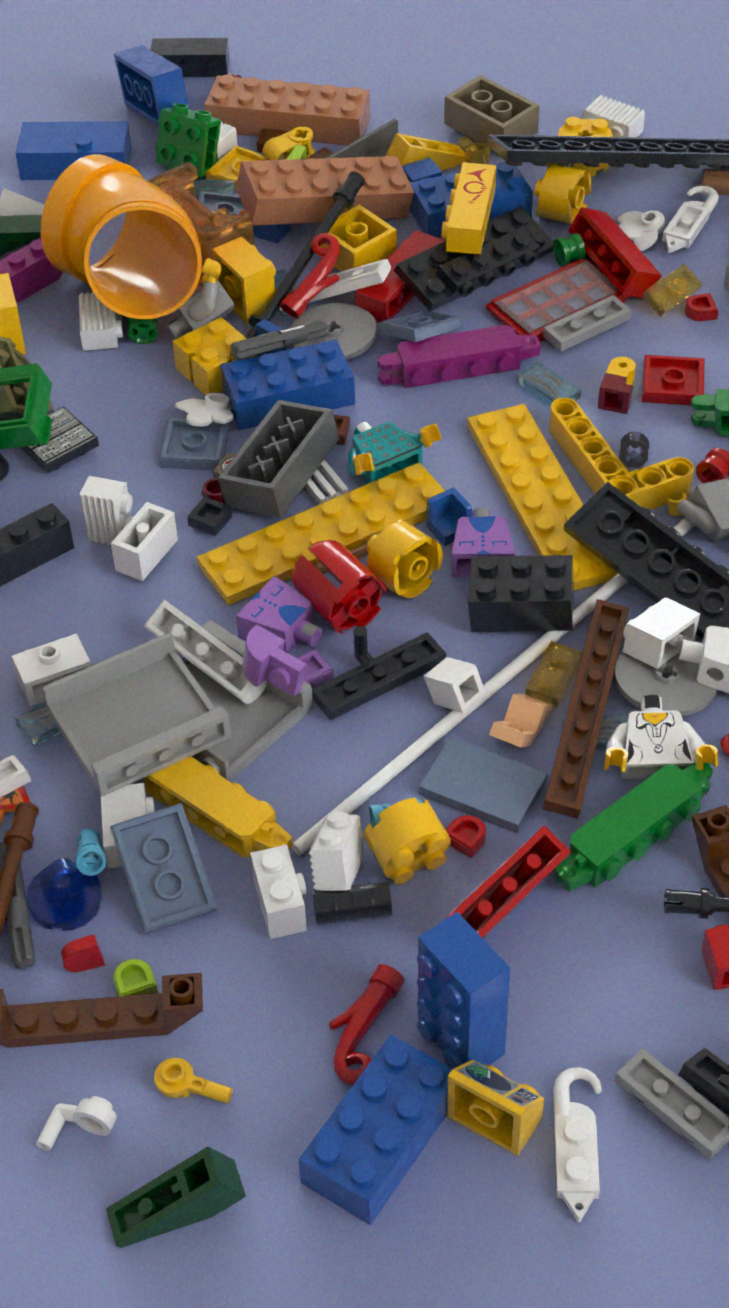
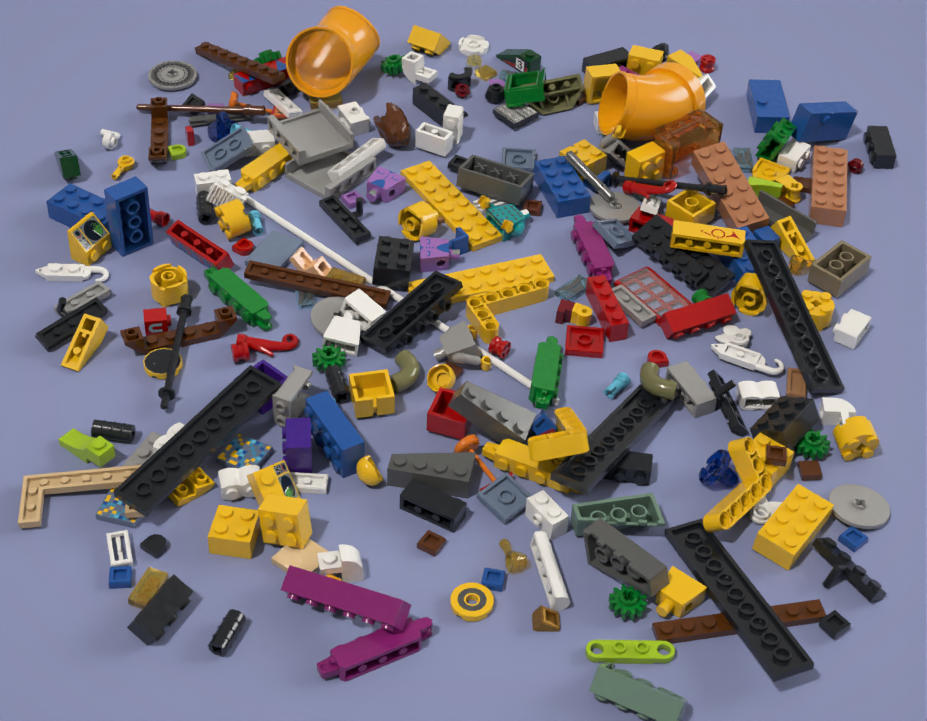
camera: 85 degrees right, 5 degrees down
(113, 595) = (393, 126): none -> reddish brown head
(204, 412) = (531, 157): white plate -> none
(267, 661) = (337, 166): medium lavender brick -> none
(356, 585) = (396, 196): red cylinder -> none
(454, 684) = (332, 238): white brick -> none
(596, 344) = (607, 308): none -> red brick
(622, 937) = (168, 284): none -> yellow brick
(632, 458) = (506, 309): black axle -> none
(655, 740) = (285, 302): white torso -> none
(672, 290) = (667, 342): clear yellow plate -> none

